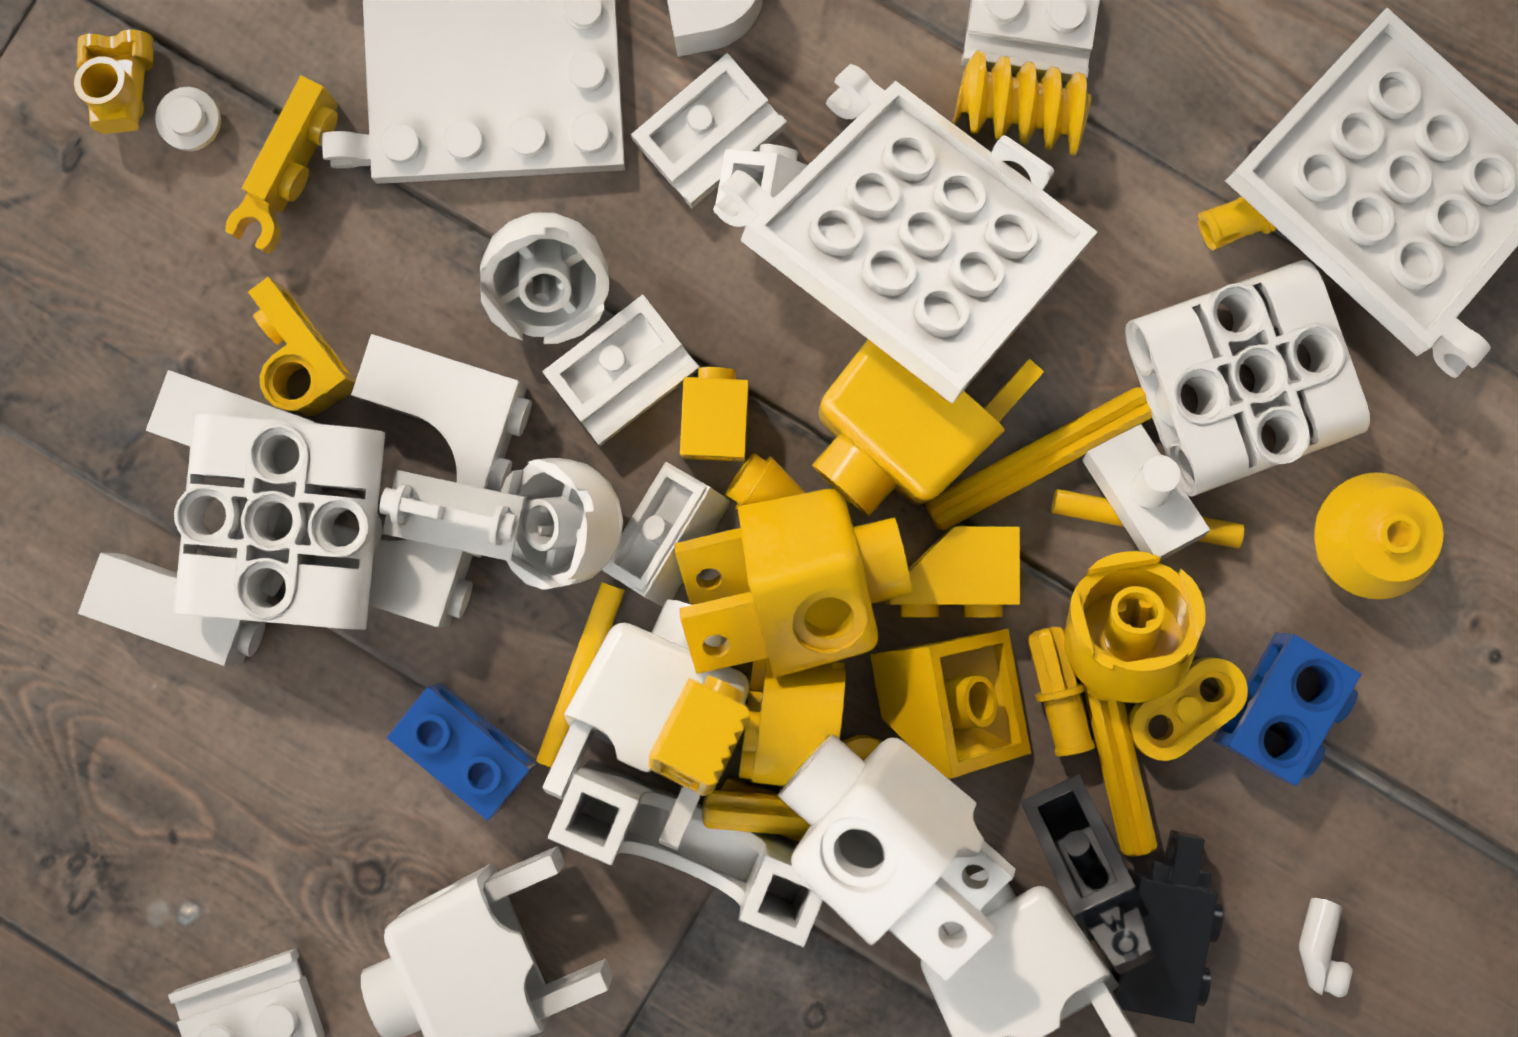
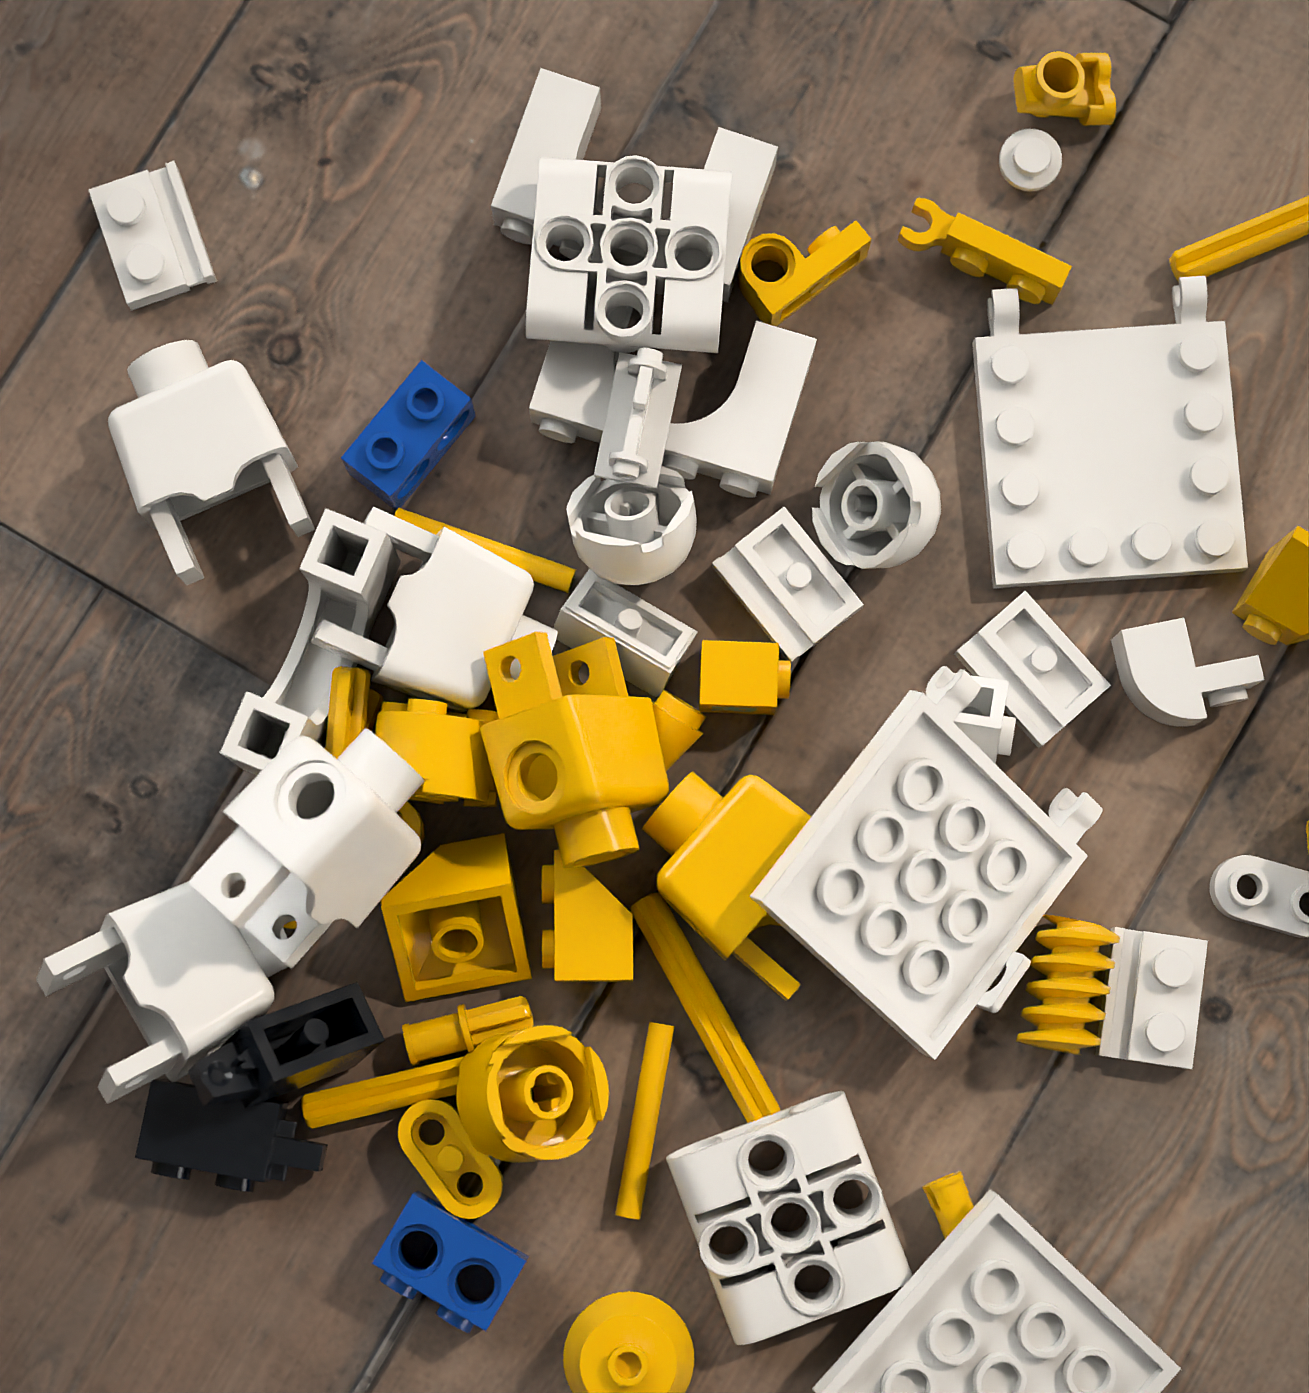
camera: 85 degrees right, 5 degrees down
(700, 734) = (423, 648): yellow brick -> none
(1146, 493) = (668, 1114): white tile -> none
(1317, 947) = (204, 1293): white arm -> none

